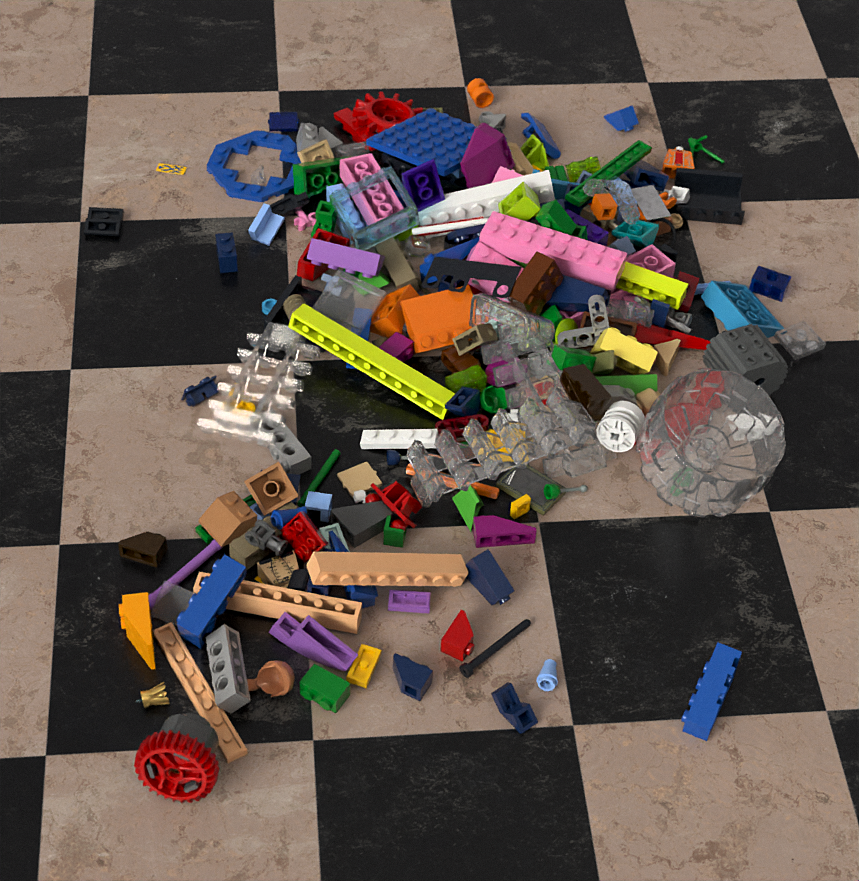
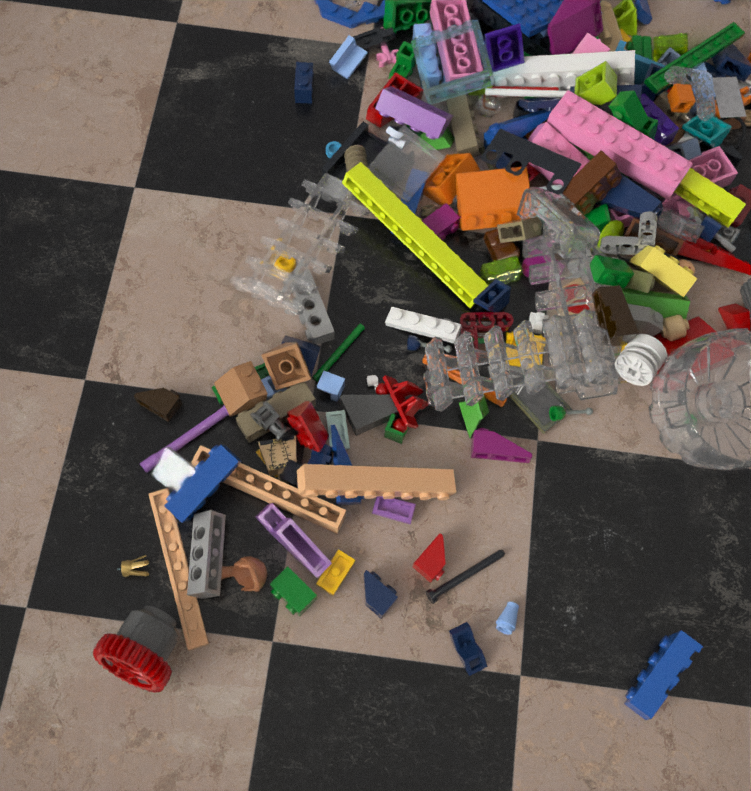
camera: 10 degrees right, 20 degrees up
(104, 221) = (198, 27): black slope -> none
(137, 621) = (135, 487): light orange slope -> none
(194, 393) = (241, 237): dark blue hinge -> none
(282, 517) = (291, 400): blue cone -> none
(359, 478) = (377, 360): tan piece -> none
(489, 578) = (474, 500): dark blue slope -> none
(493, 399) = (523, 296): green hair -> none
(520, 506) = (523, 422): yellow tile -> none
(666, 355) = (704, 272): tan slope -> none

